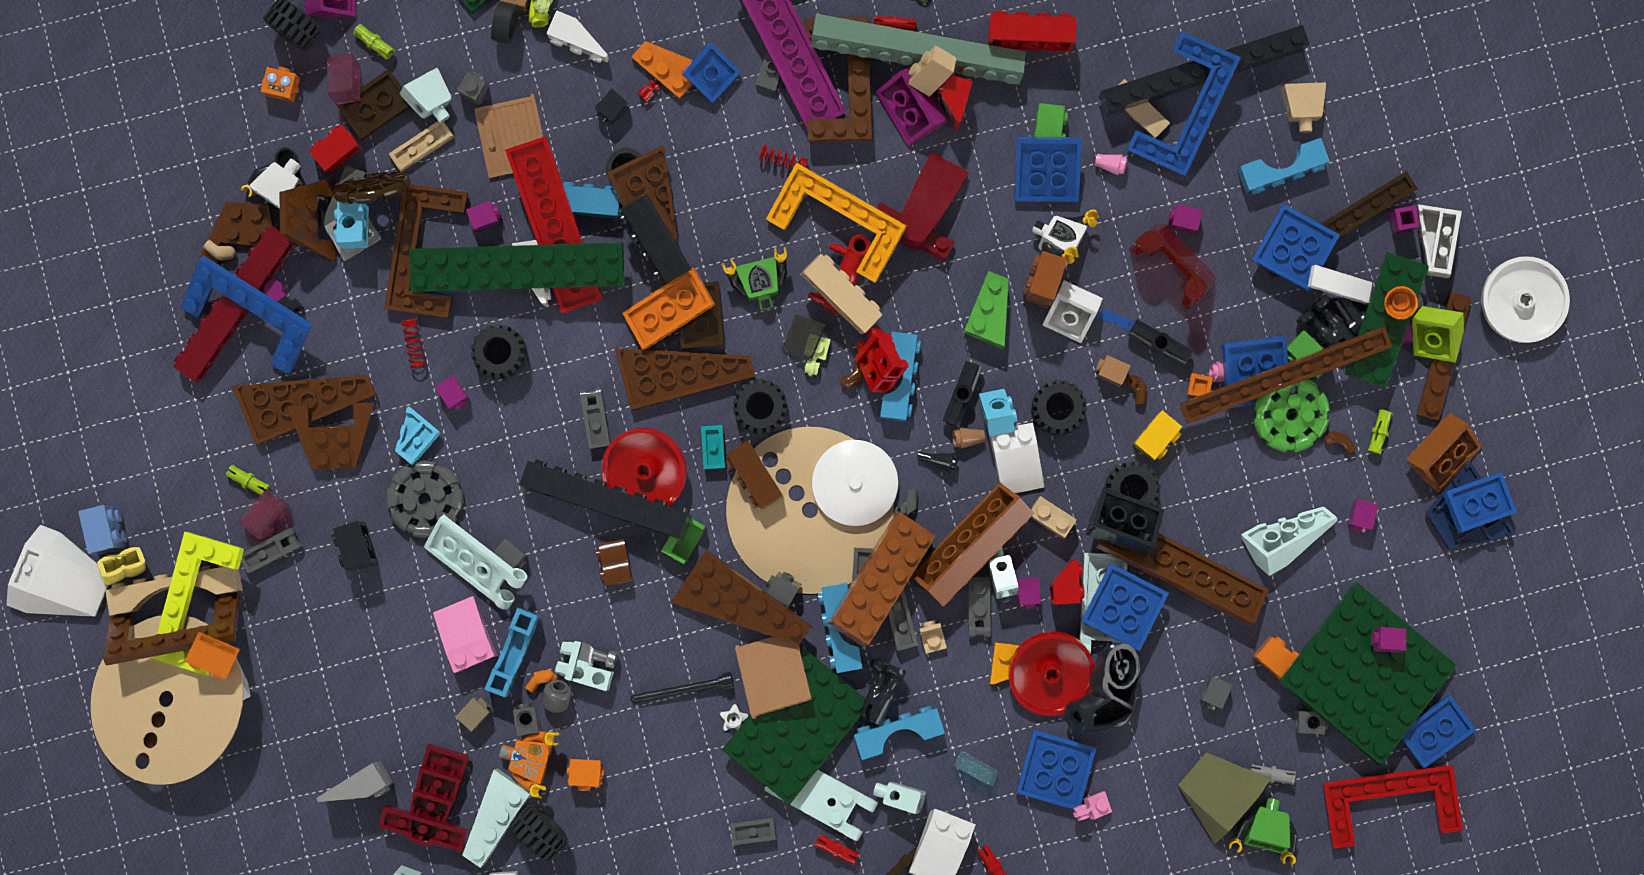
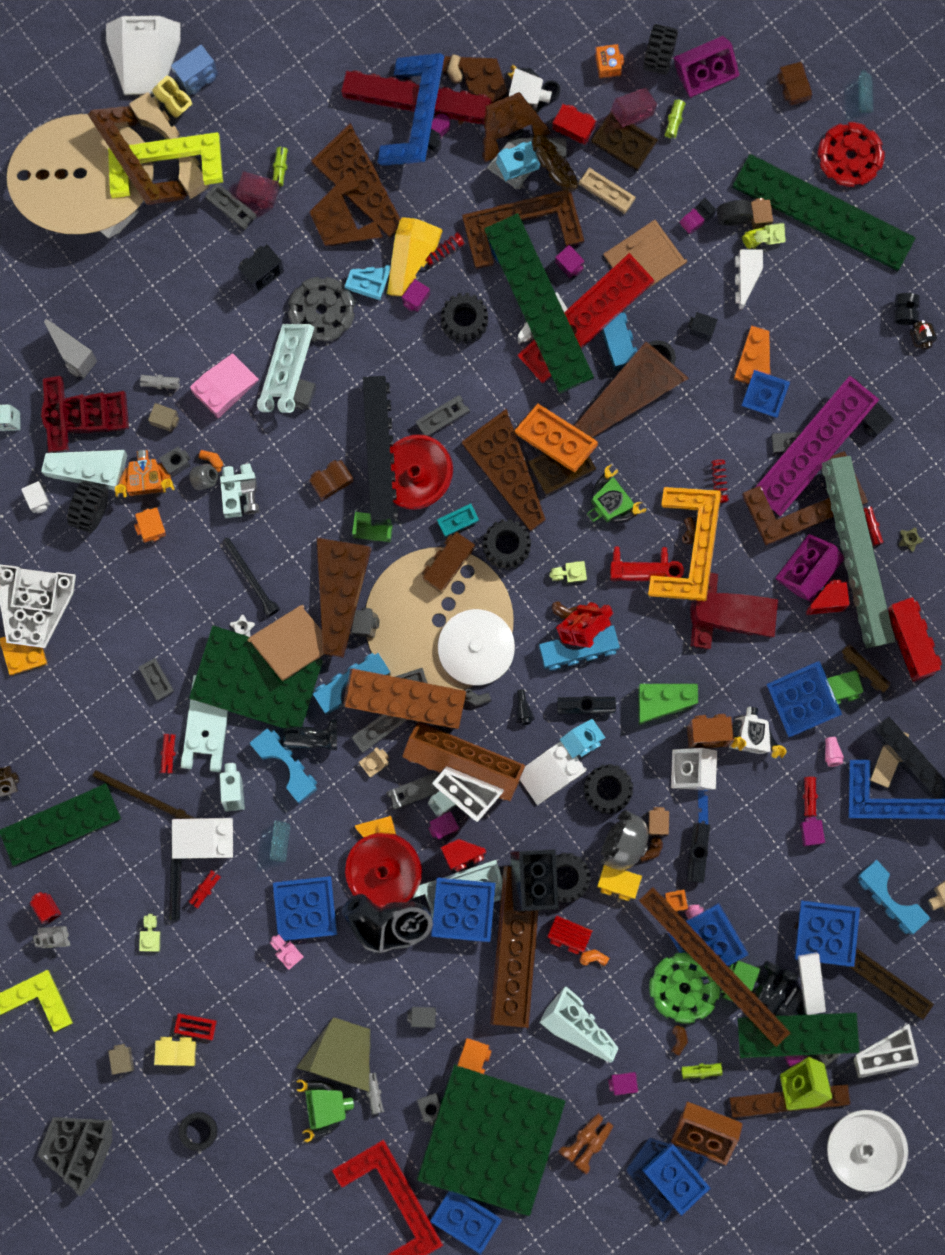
camera: 65 degrees right, 5 degrees down
(212, 656) = (127, 191): orange brick -> none
(399, 376) = (411, 247): none -> yellow wedge
(428, 95) = (649, 178): light aqua torso -> none
(432, 702) = (160, 382): none -> light grey pin
(473, 87) = (671, 211): dark grey brick -> none
(490, 62) = (698, 216): none -> leg
(512, 655) = (218, 429): dark azure arch -> none
(647, 92) = (728, 350): red piece -> none
(654, 239) = (607, 400): black slope -> none
(803, 336) = (579, 556): clear smoke piece -> none
(825, 211) = (688, 537): none -> reddish brown arm
(841, 293) = (627, 569): tan brick -> none
(932, 70) = (844, 568): tan brick -> none
(967, 437) = (552, 724): medium nougat cone -> none
(1009, 553) = (467, 792): none -> white wedge
(1041, 93) = (865, 669): none -> dark brown plate
(1052, 517) = (514, 820): tan brick -> none
(1121, 413) = (625, 842): none -> dark grey cylinder
(1147, 205) = (810, 796): none -> red pin
(1179, 254) = (767, 863): clear red windscreen -> none
(1191, 508) = (569, 934): none -> red brick
(1221, 493) = (593, 955): none -> orange arm
(1389, 640) = (526, 1144): magenta brick -> none
(1400, 576) = (587, 1136): none -> dark orange piece
(1401, 302) = (816, 1038): orange hair -> none
(1404, 219) = (891, 1018): magenta brick -> none

